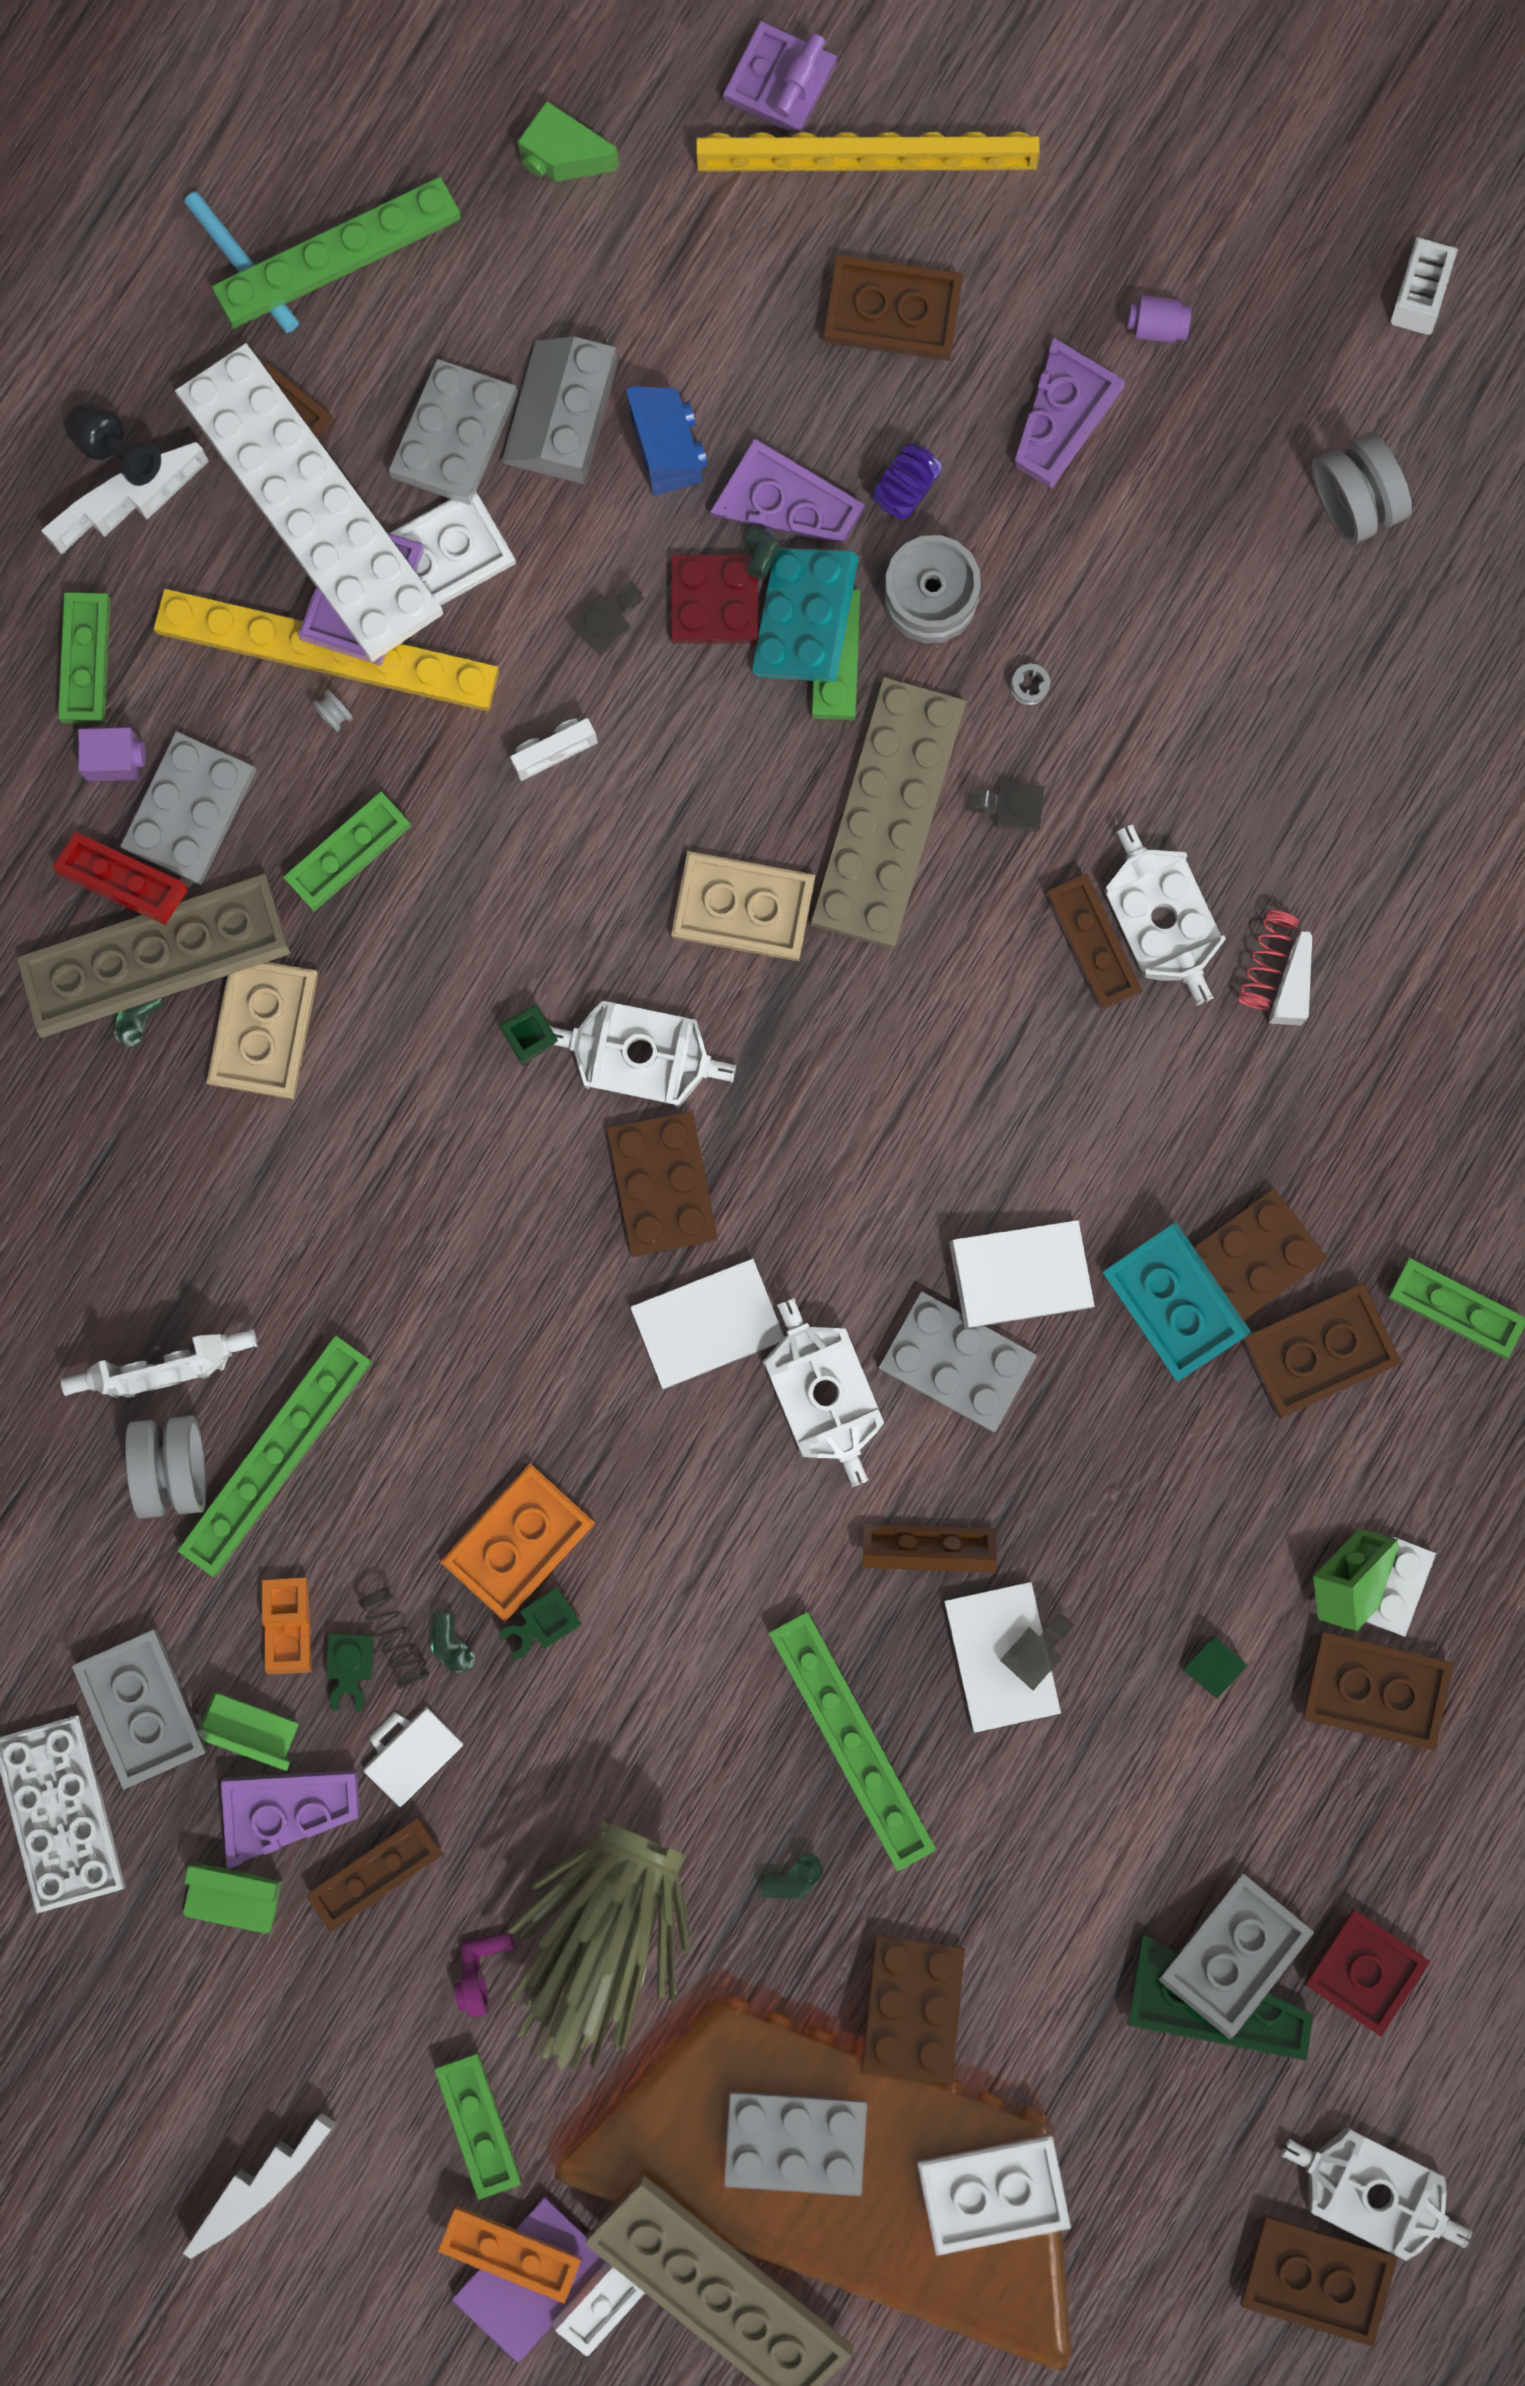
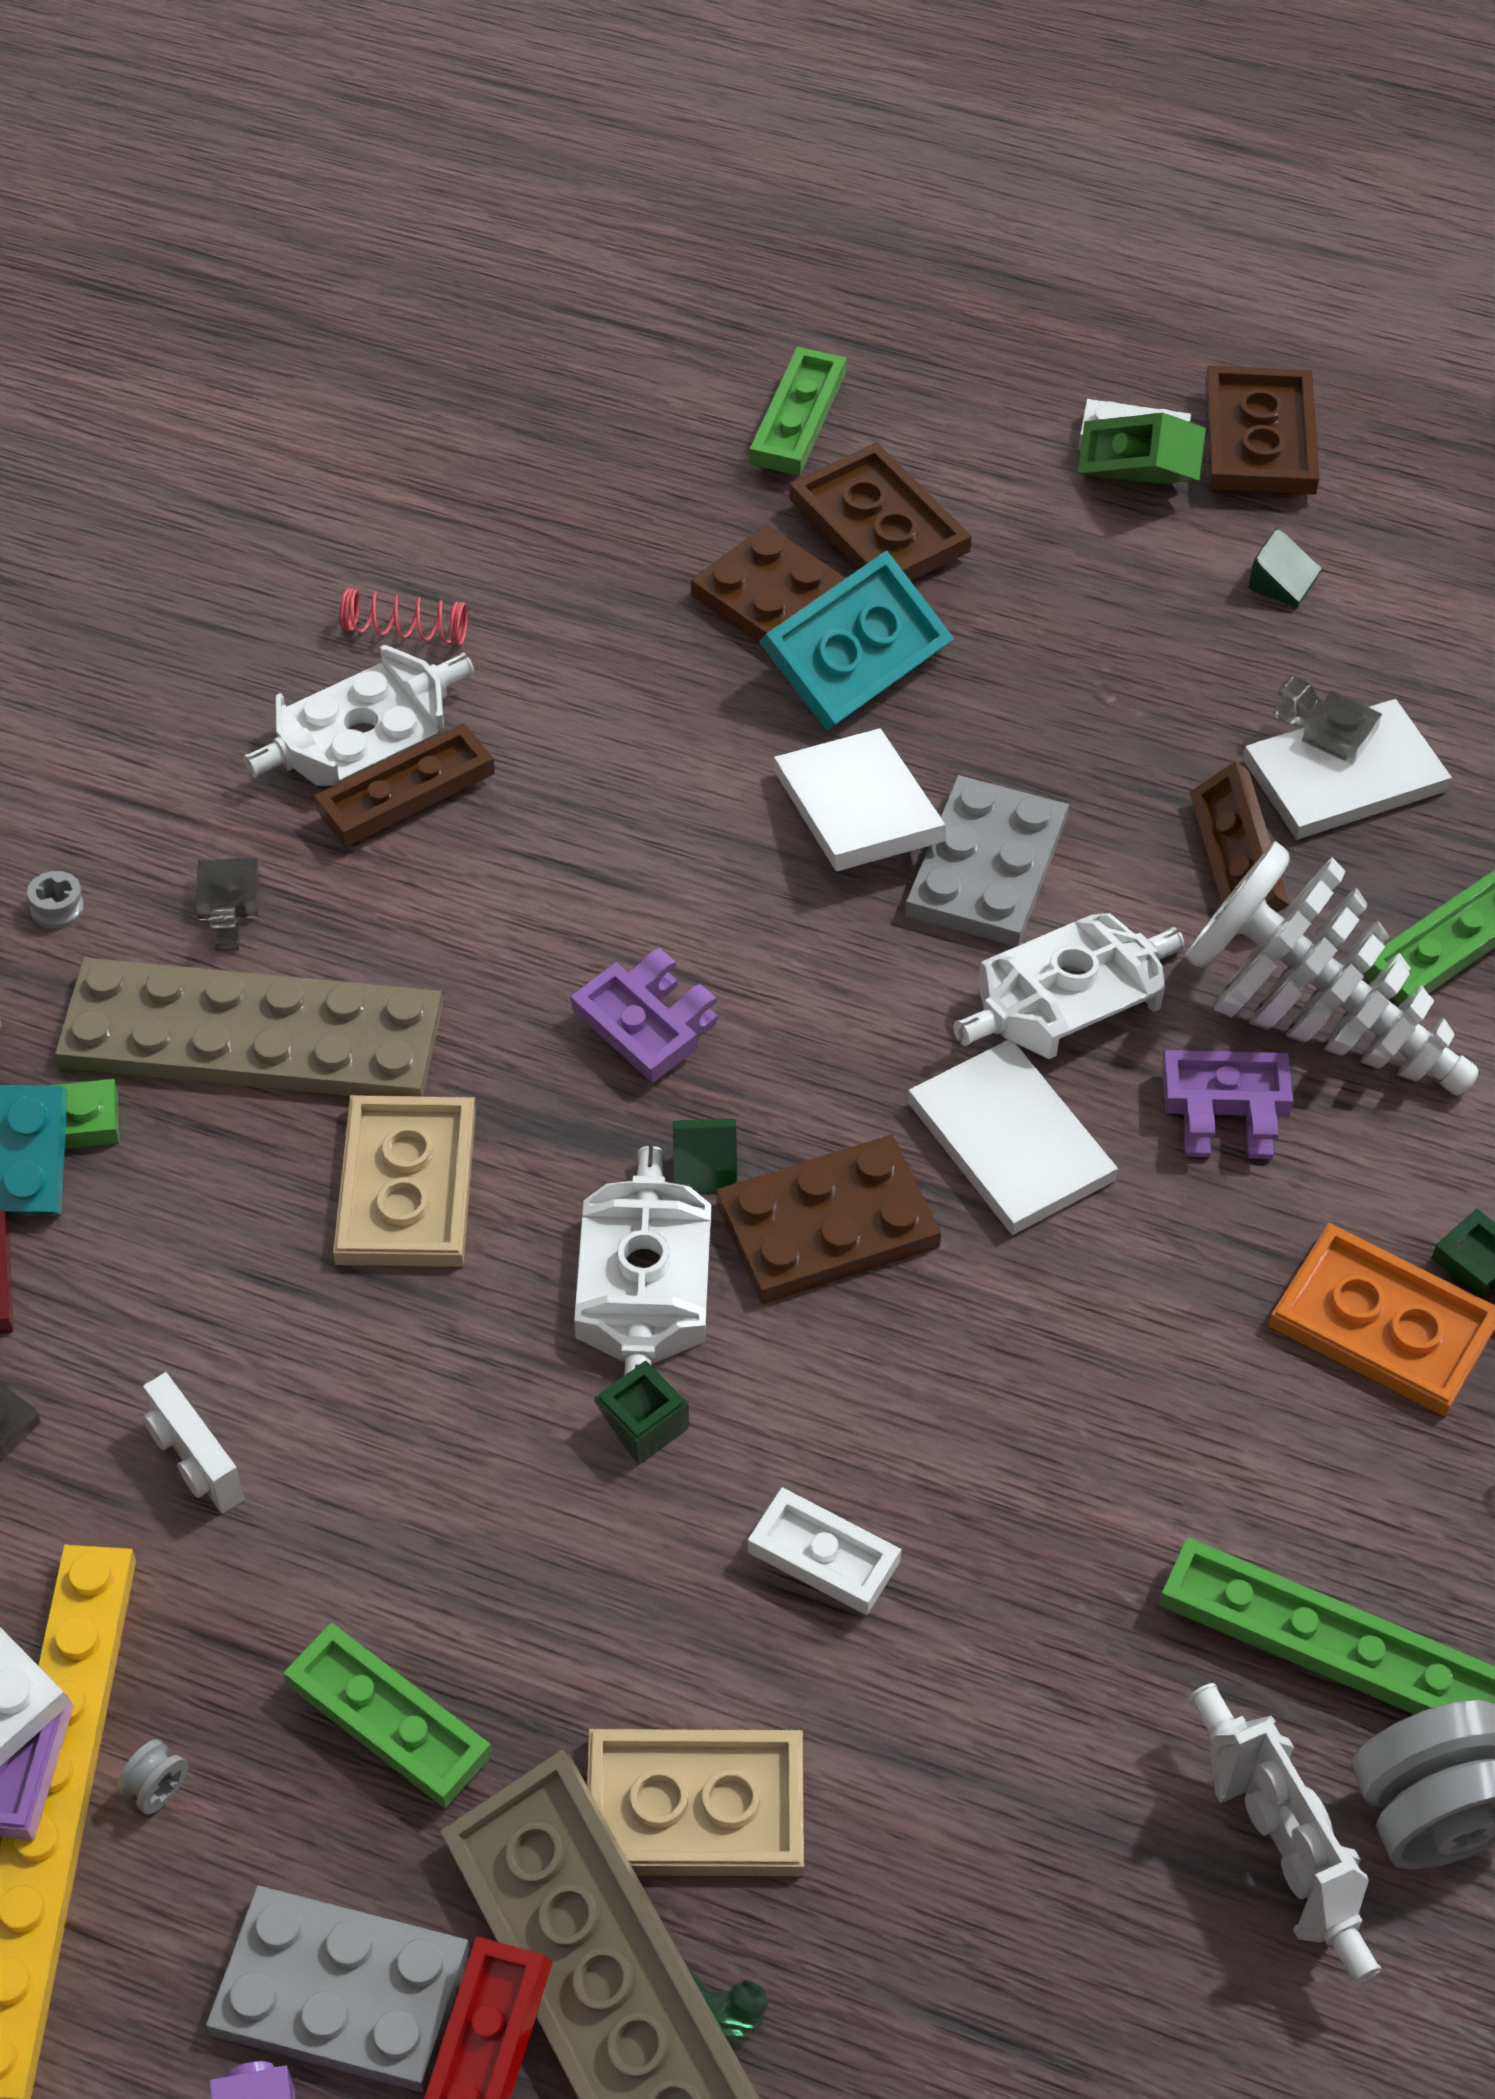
camera: 105 degrees left, 30 degrees down
(408, 1133) = (824, 1551): none -> white plate
(719, 1108) = (705, 1154): none -> dark green slope
(719, 1481) = (1227, 1084): none -> medium lavender plate
(786, 1563) = (1336, 982): none -> white plant
(843, 1079) = (636, 1024): none -> medium lavender plate
(1293, 994) = (438, 578): white slope -> none

